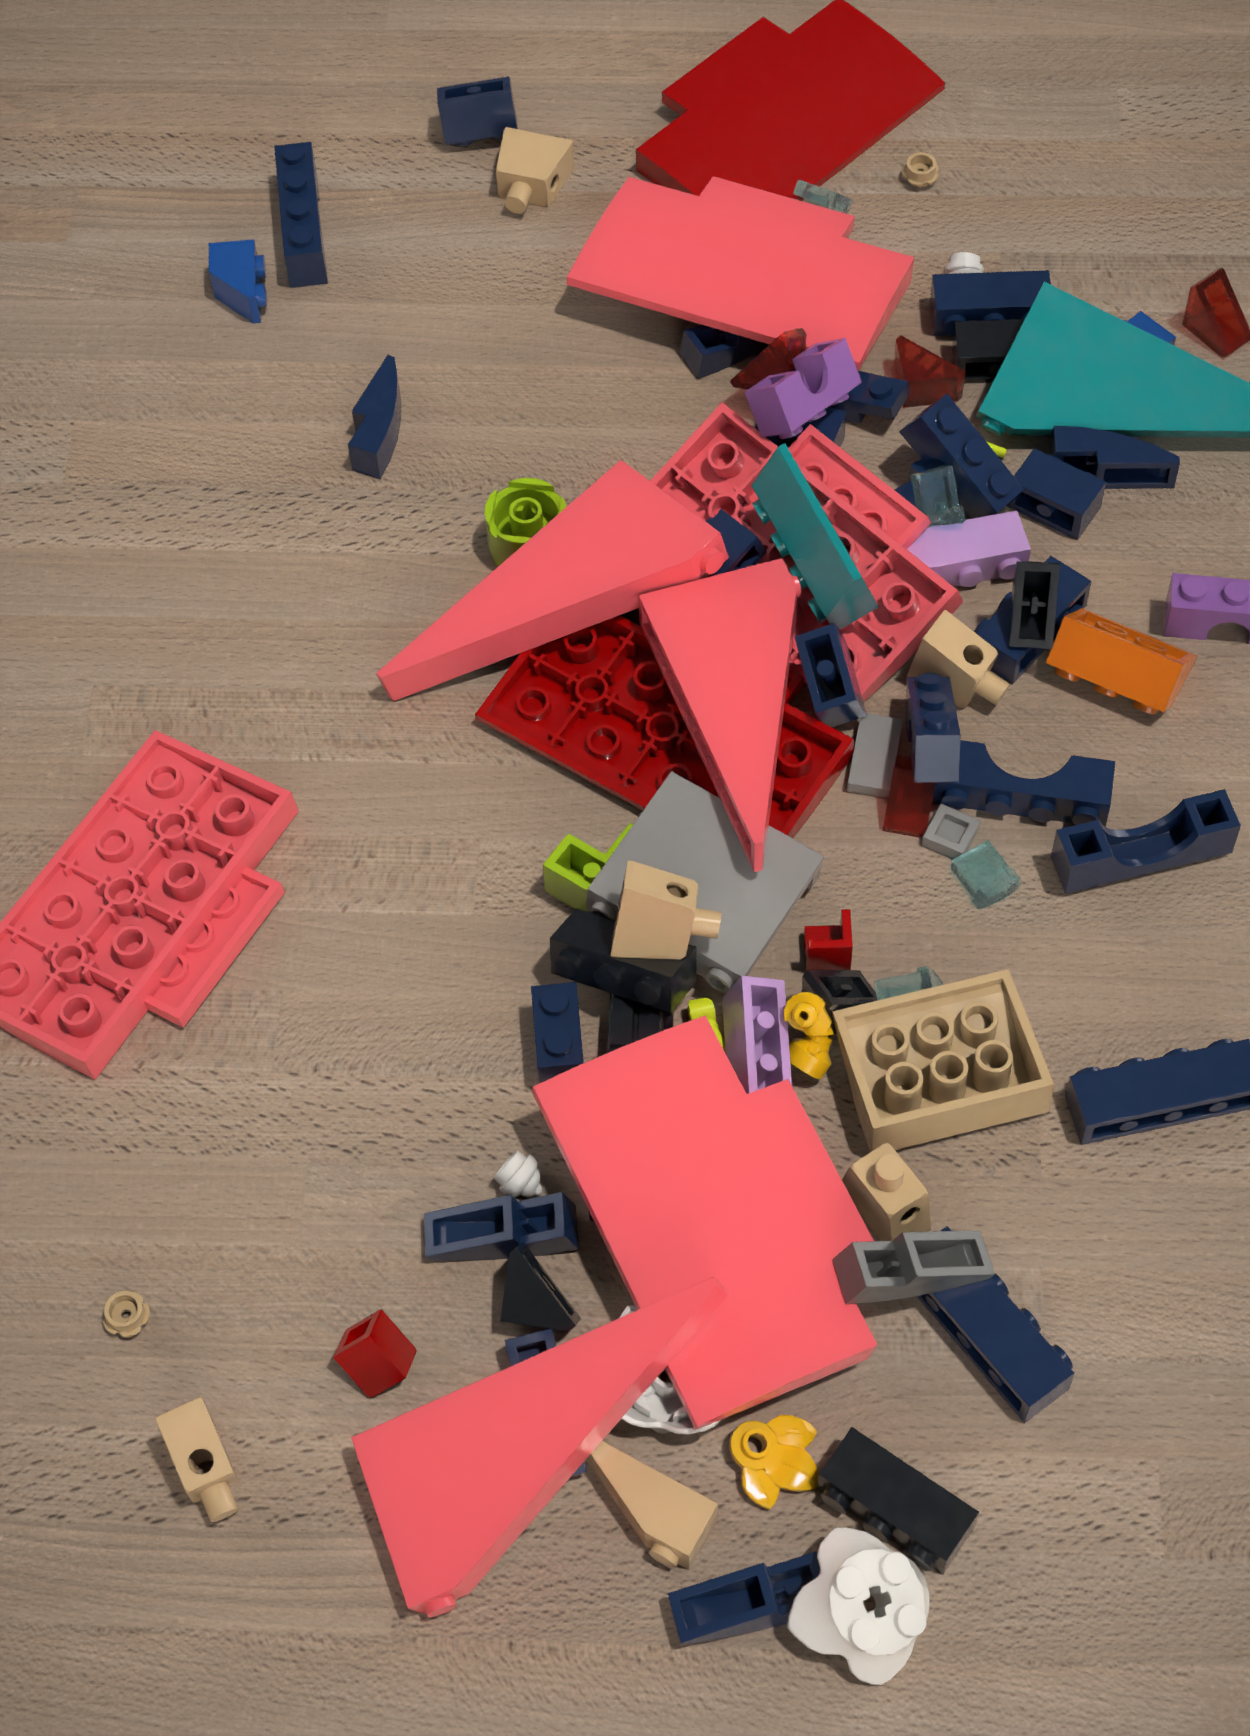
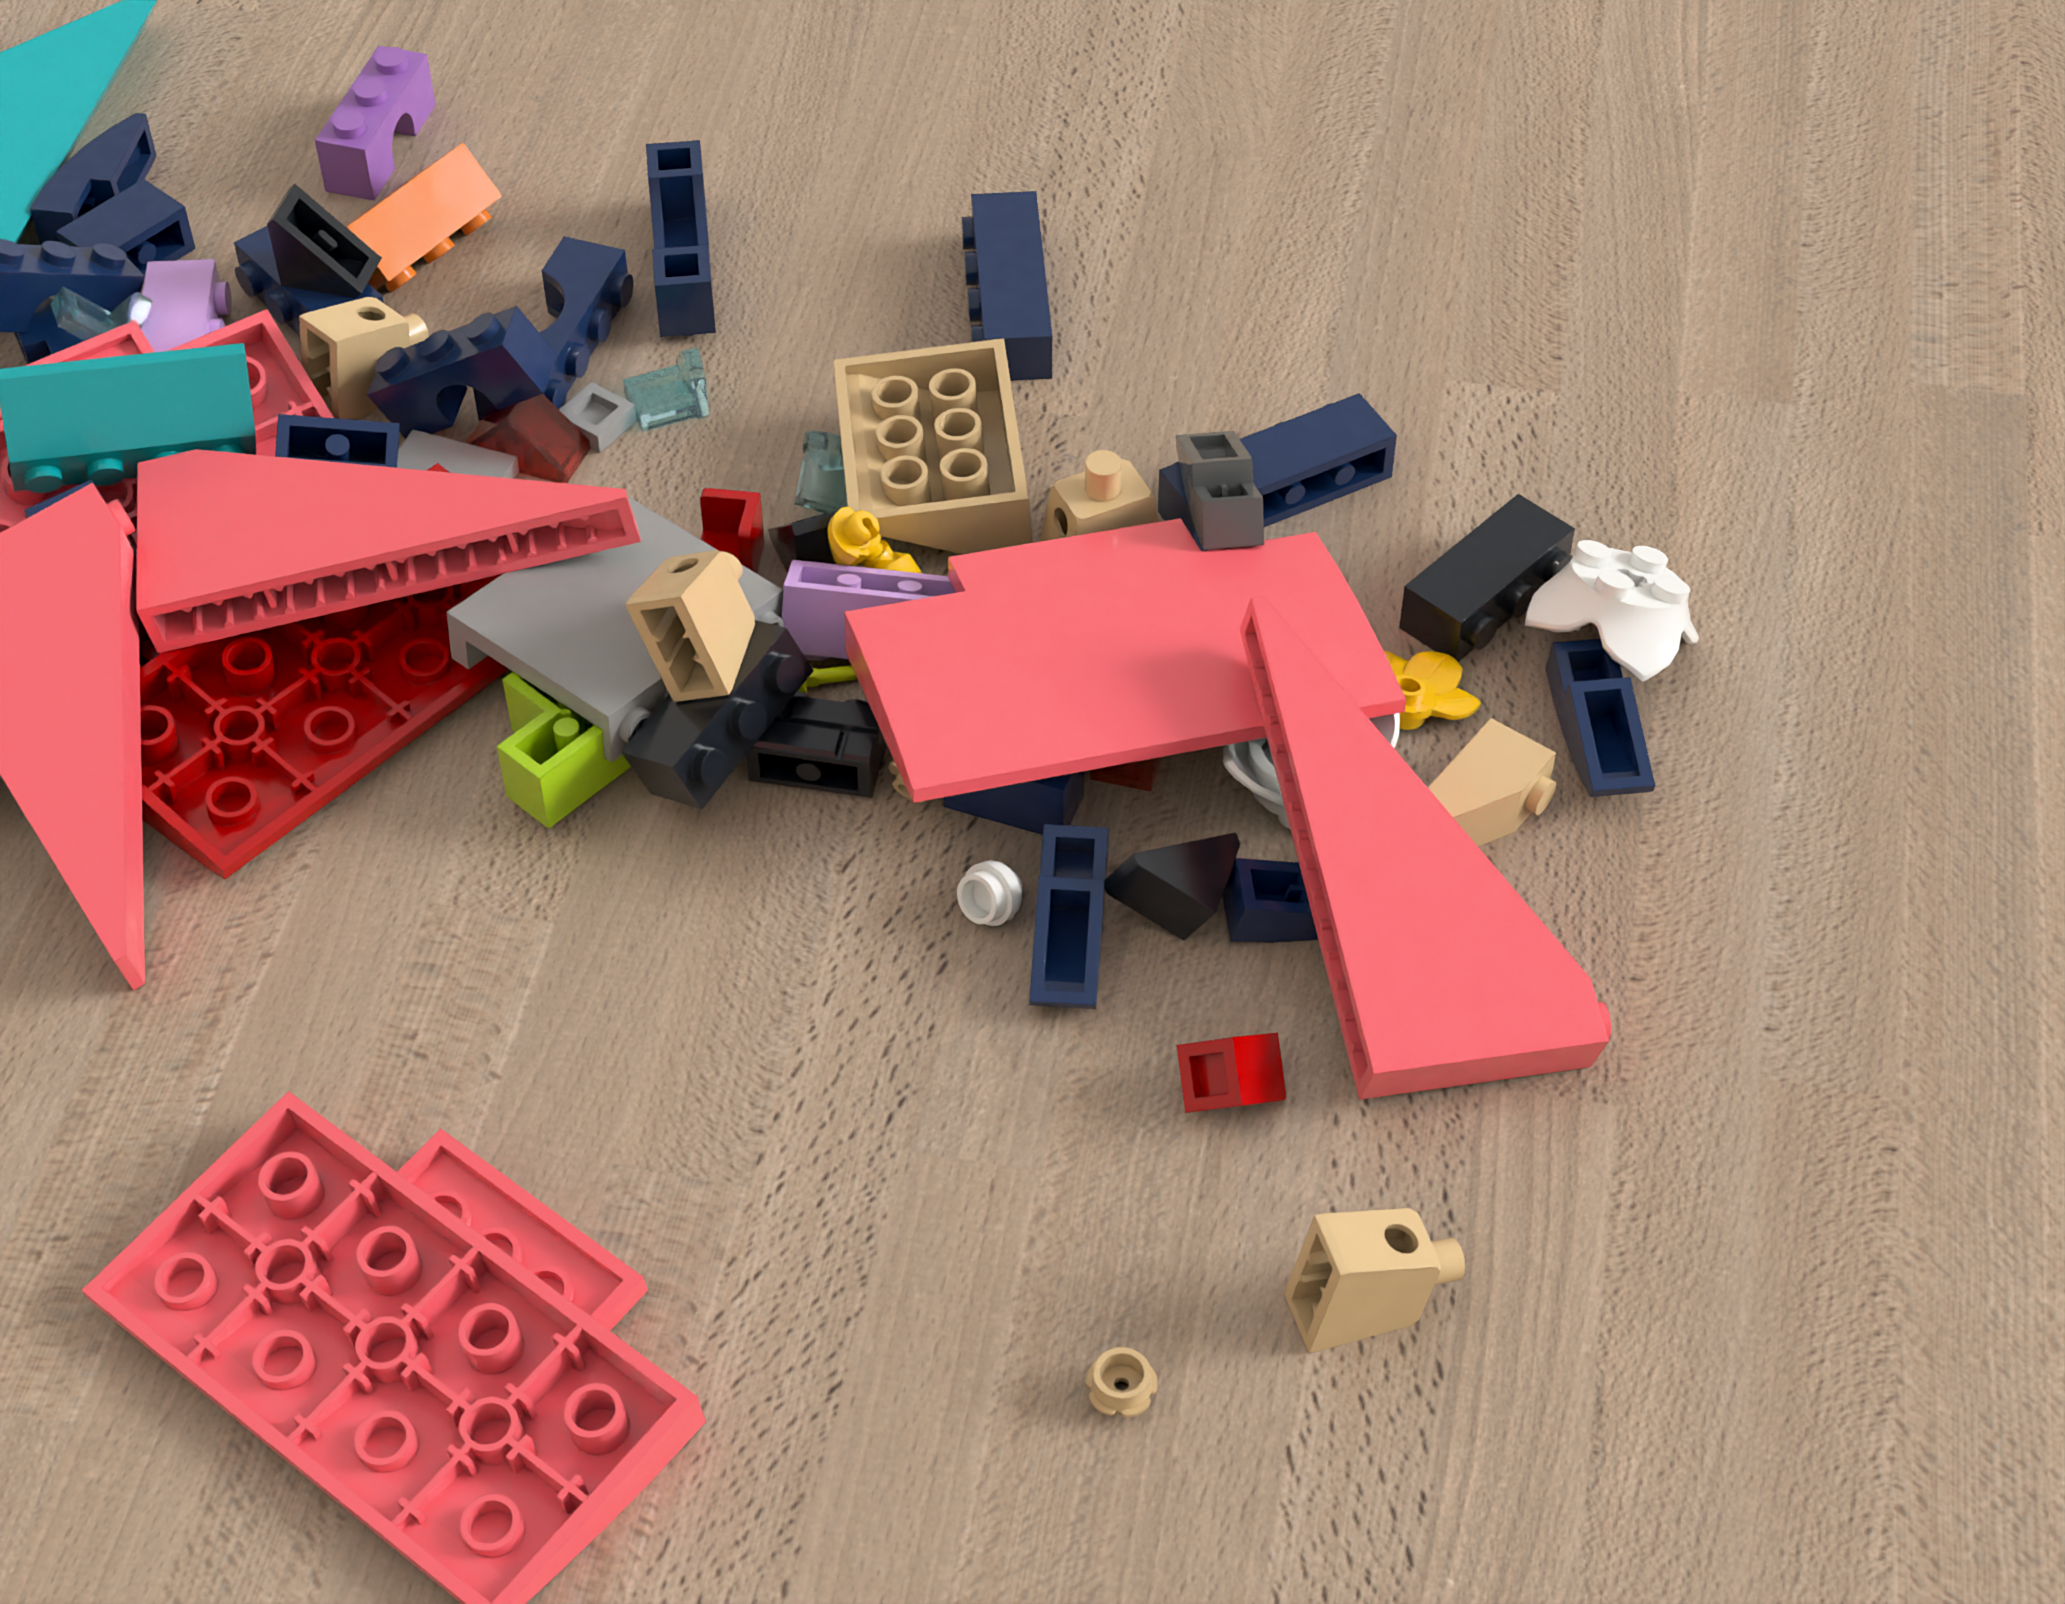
camera: 85 degrees left, 10 degrees down
(556, 1028) = (796, 821): dark blue brick -> none

